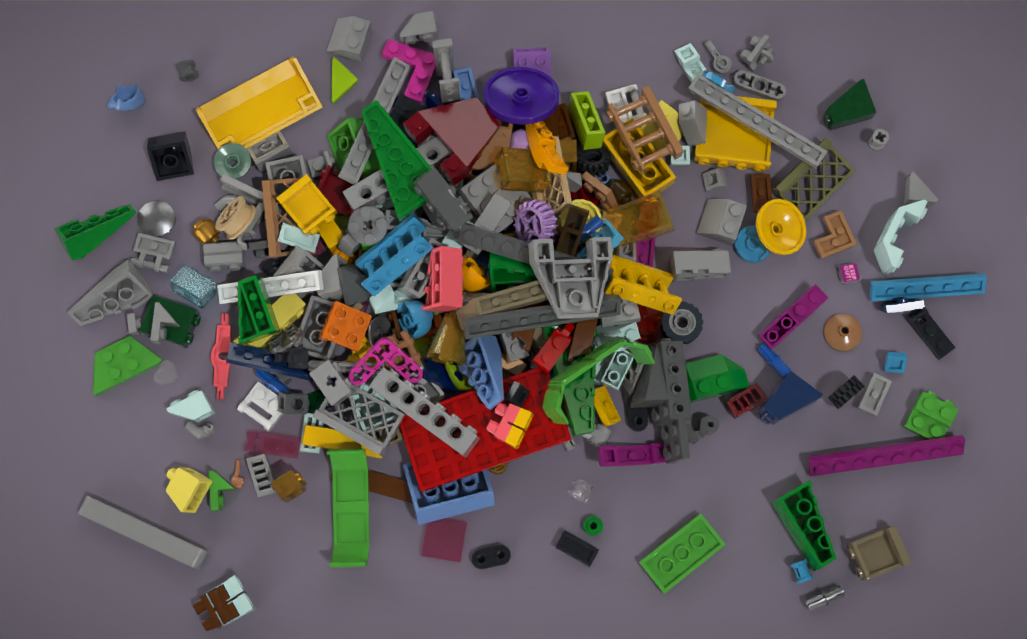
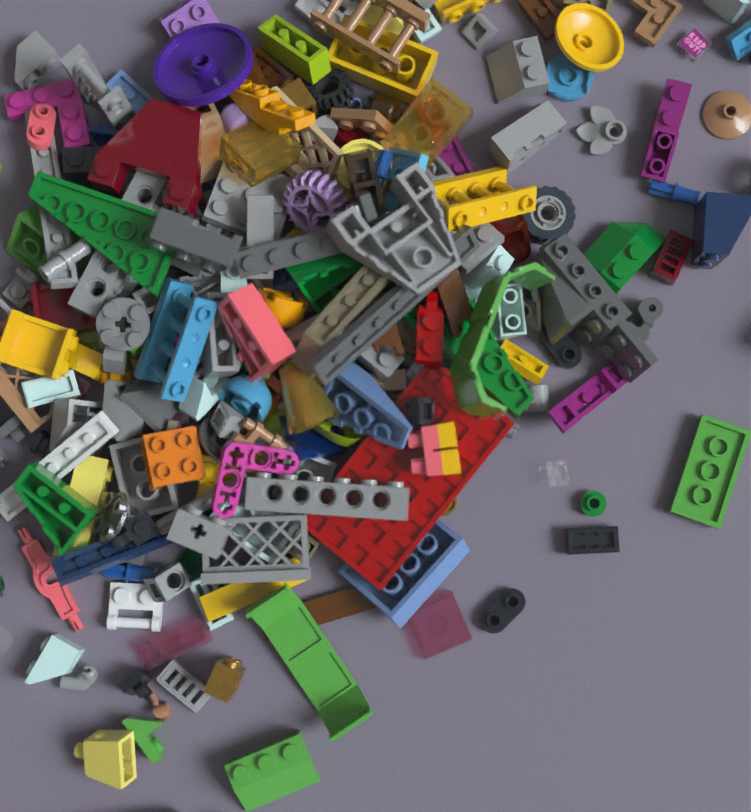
camera: 30 degrees left, 5 degrees up
(233, 454) = (137, 683): none -> black tile
(281, 564) = (272, 771): none -> bright green slope
(357, 164) = (64, 260): none -> light grey pin
(393, 324) = (226, 420): none -> light grey slope
(398, 71) = (41, 124): none -> coral plate
(561, 243) = (364, 205): none -> dark grey tile
(750, 291) = (598, 130): none -> light grey plate

